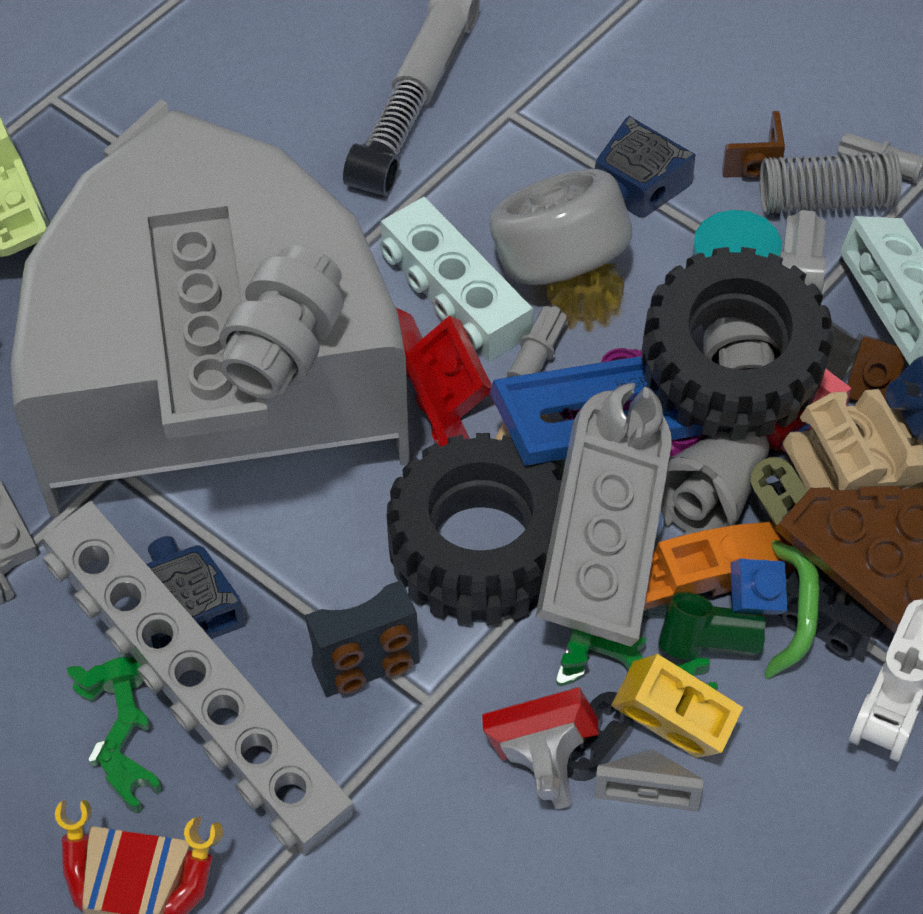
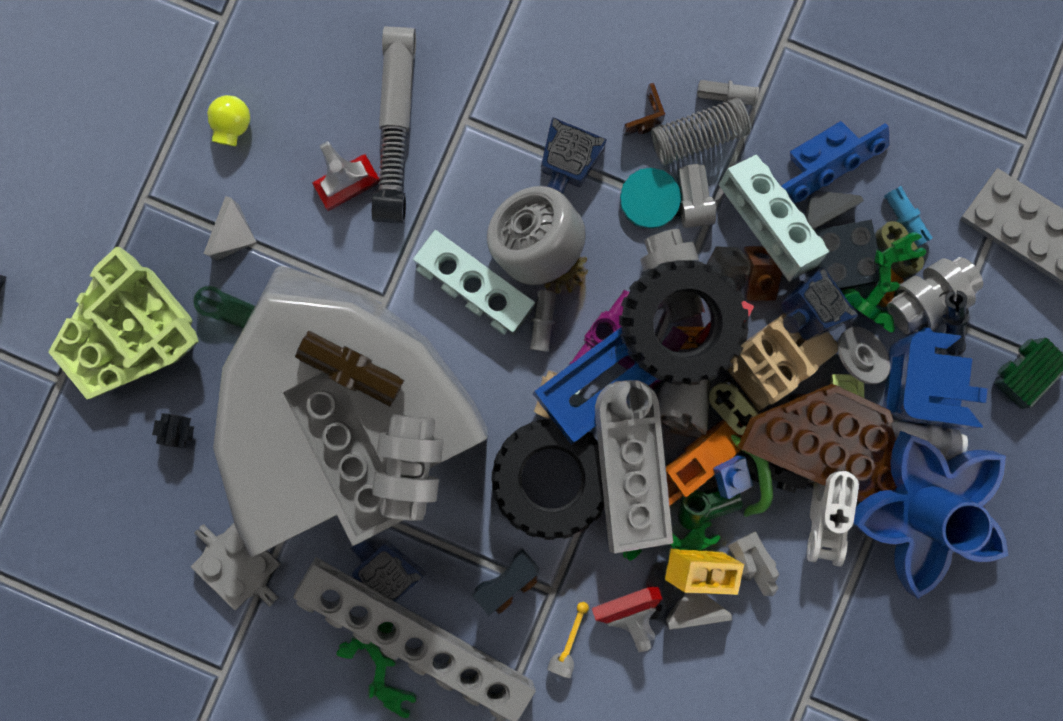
camera: 15 degrees left, 30 degrees up
(199, 35) = (228, 119): none -> neon yellow piece
(247, 198) = (349, 368): none -> dark brown piece
(323, 127) = (343, 178): none -> piece
(409, 797) = (562, 662): none -> hinge
(444, 374) = (488, 362): red bracket -> none
(763, 728) = (756, 563): none -> light grey rock

